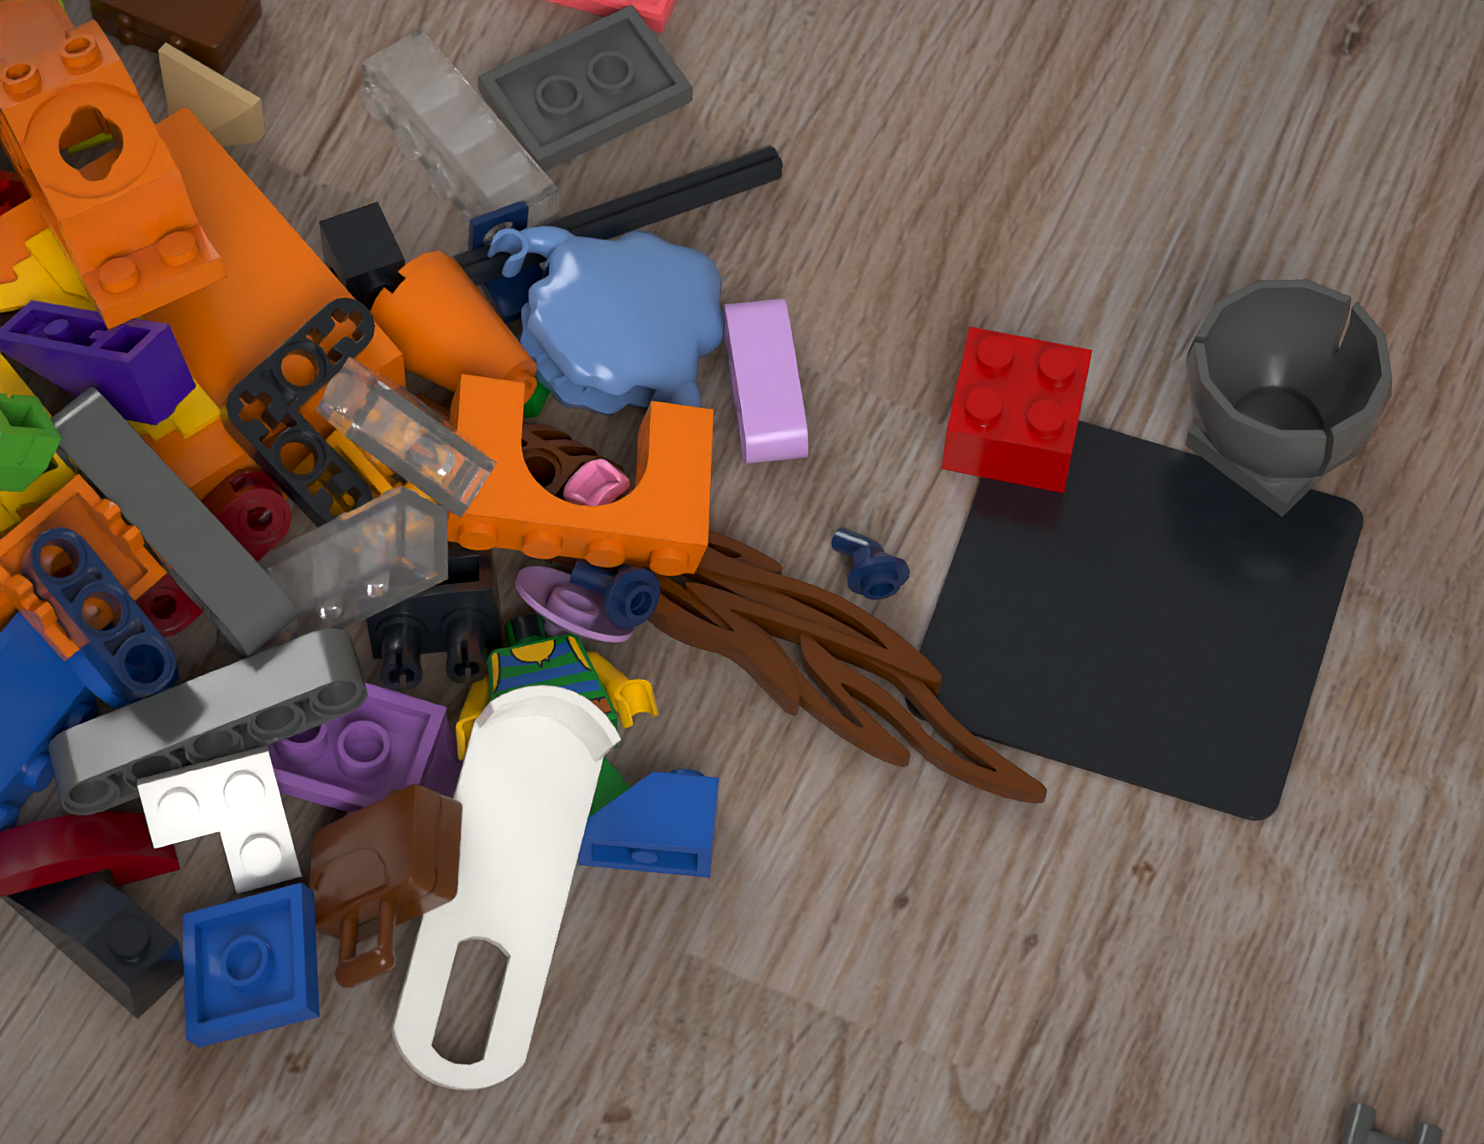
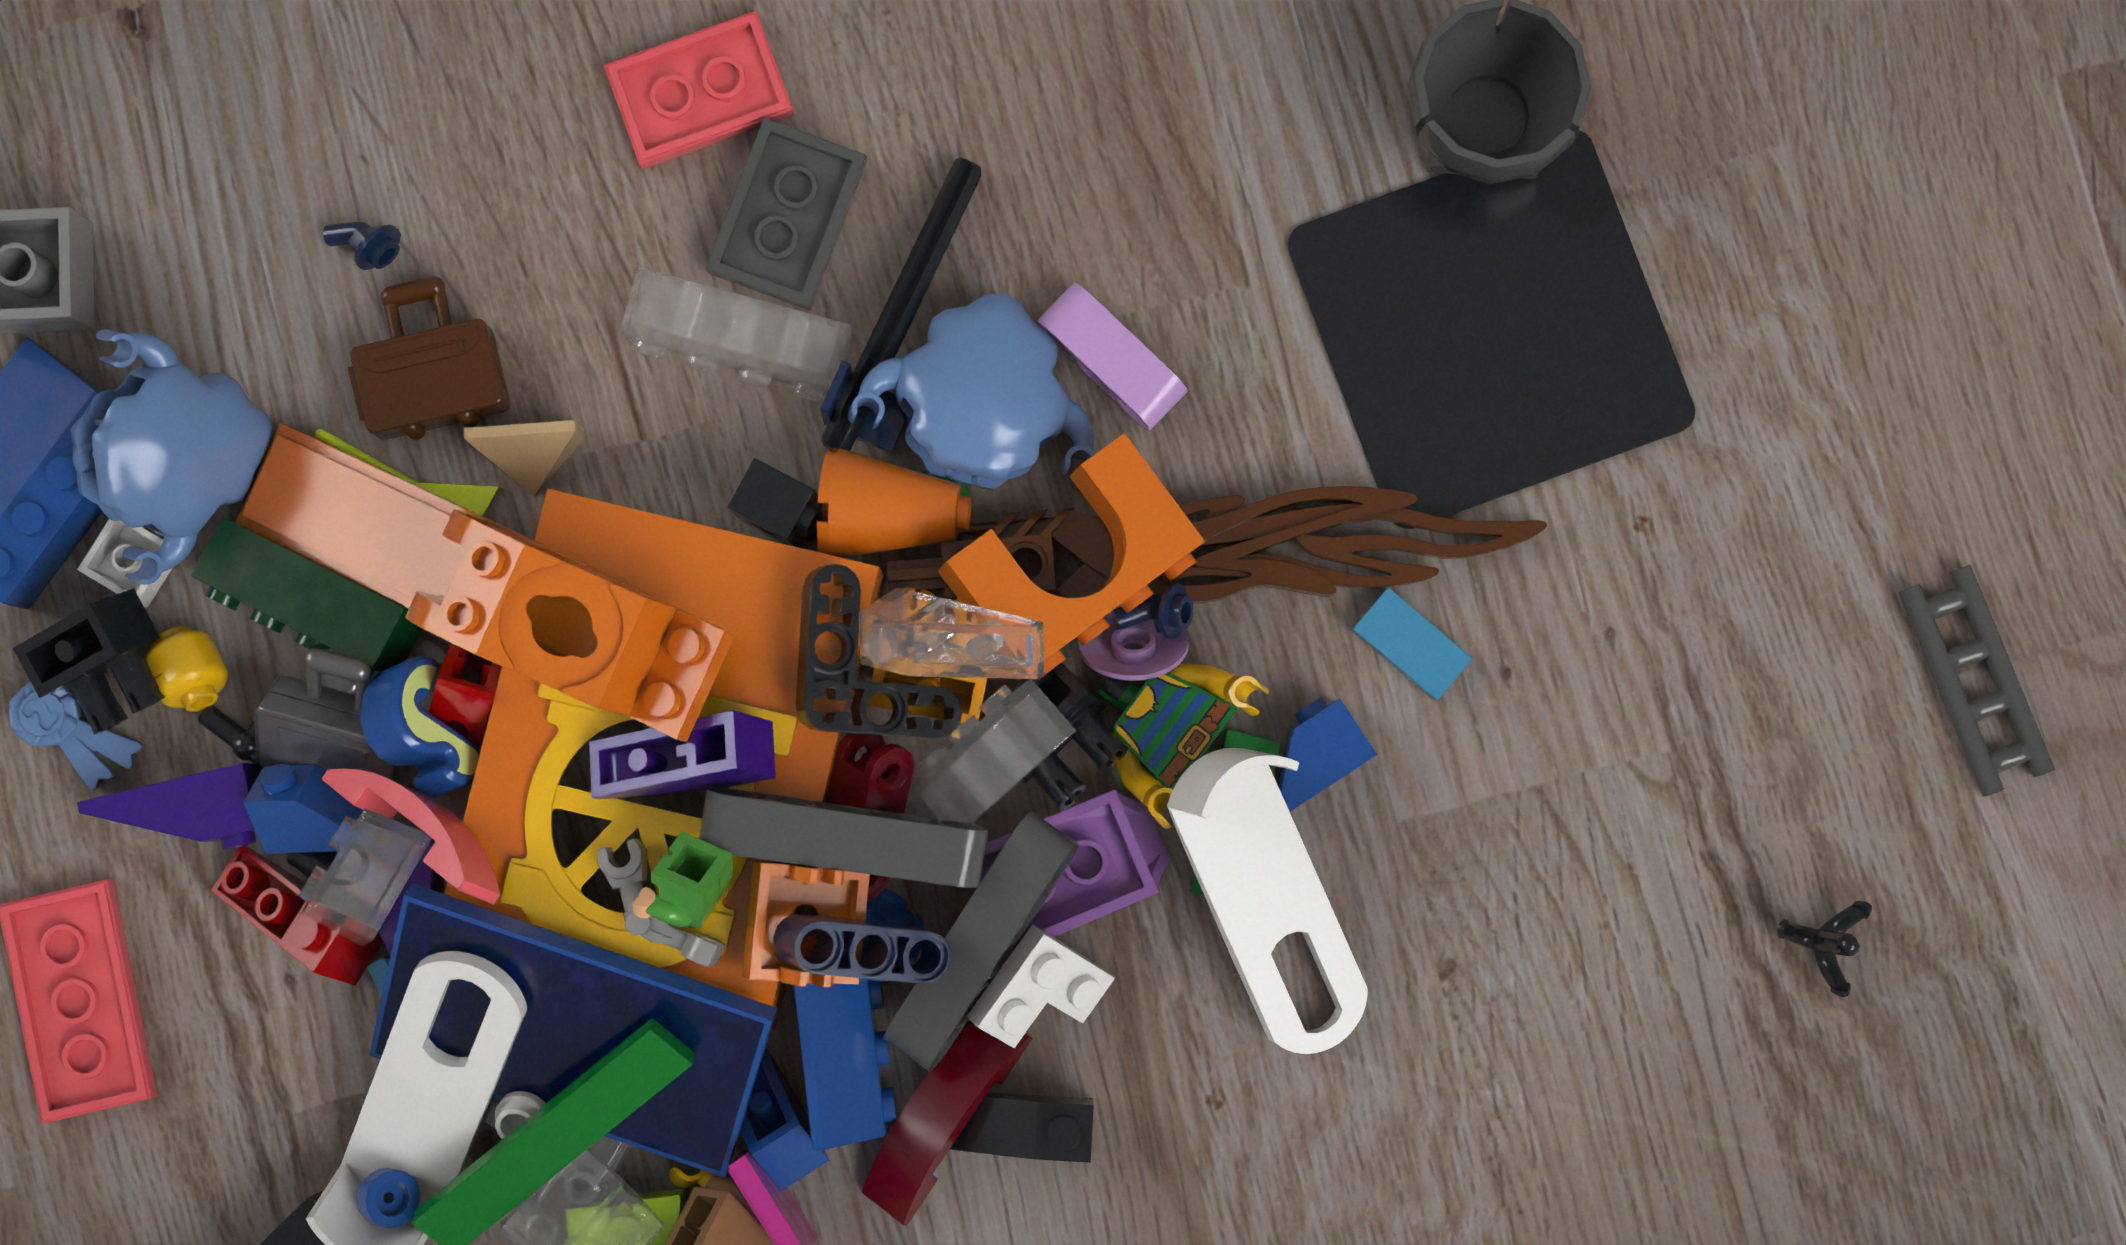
camera: 40 degrees left, 25 degrees up
(250, 965) = (1144, 1072): blue plate -> none
(383, 871) = (1182, 946): reddish brown piece -> none
(596, 484) = (1084, 551): bright pink piece -> none
(831, 806) = (1411, 644): none -> dark azure tile
(874, 571) = (1305, 448): dark blue plate -> none
(1016, 409) = (1306, 245): red brick -> none

